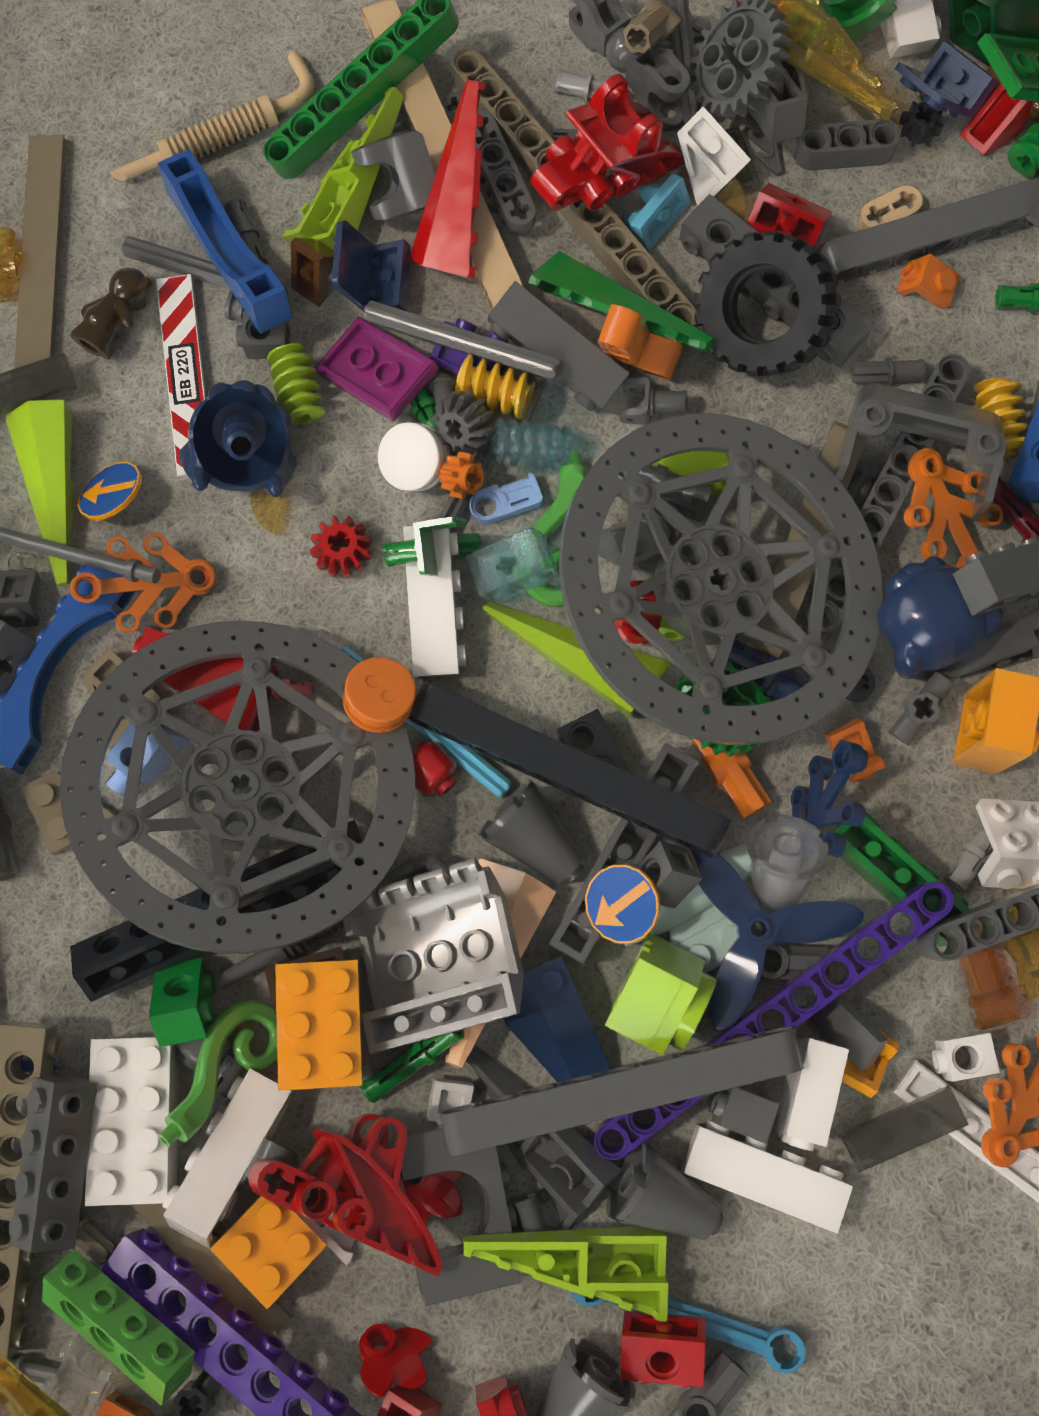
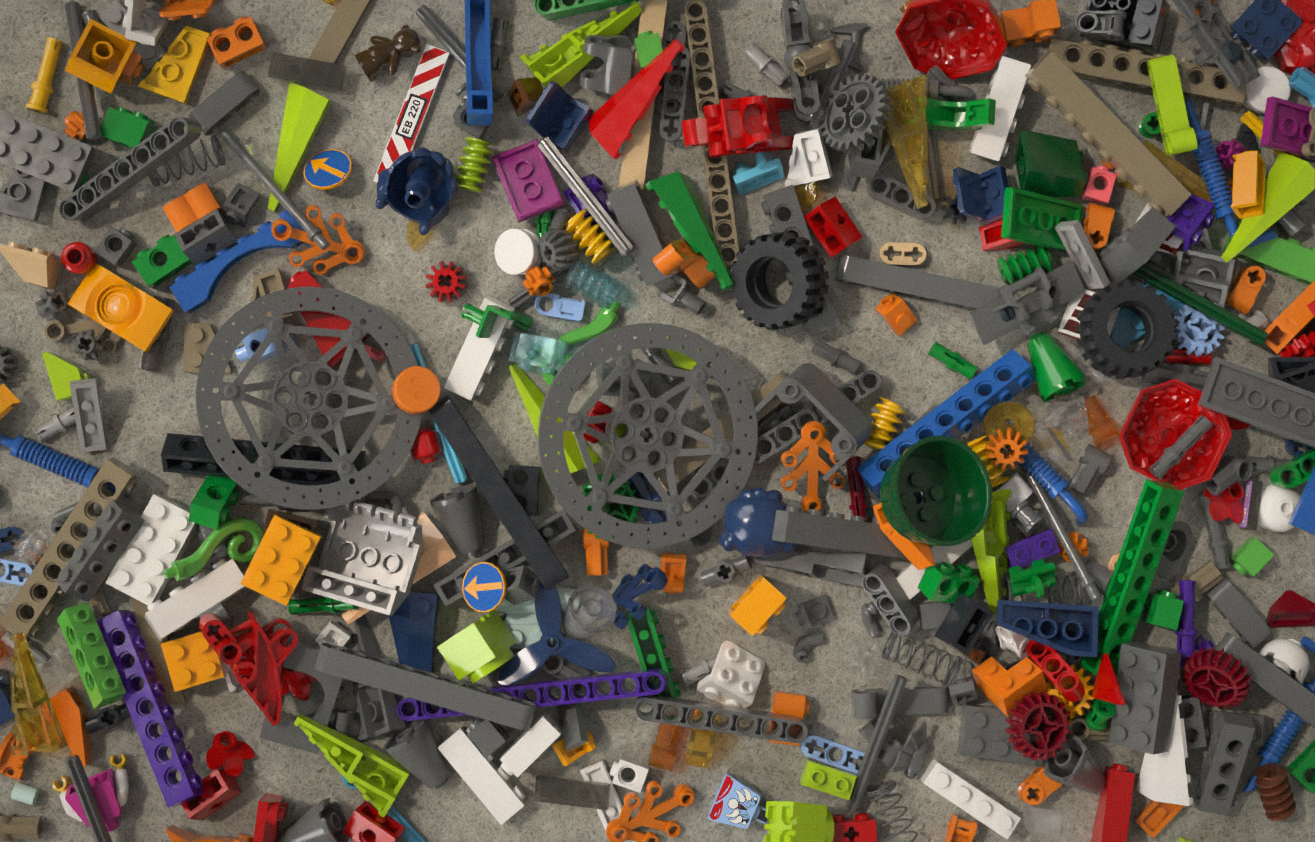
camera: 30 degrees right, 10 degrees up
(434, 123) = (647, 47): none -> bright green brick

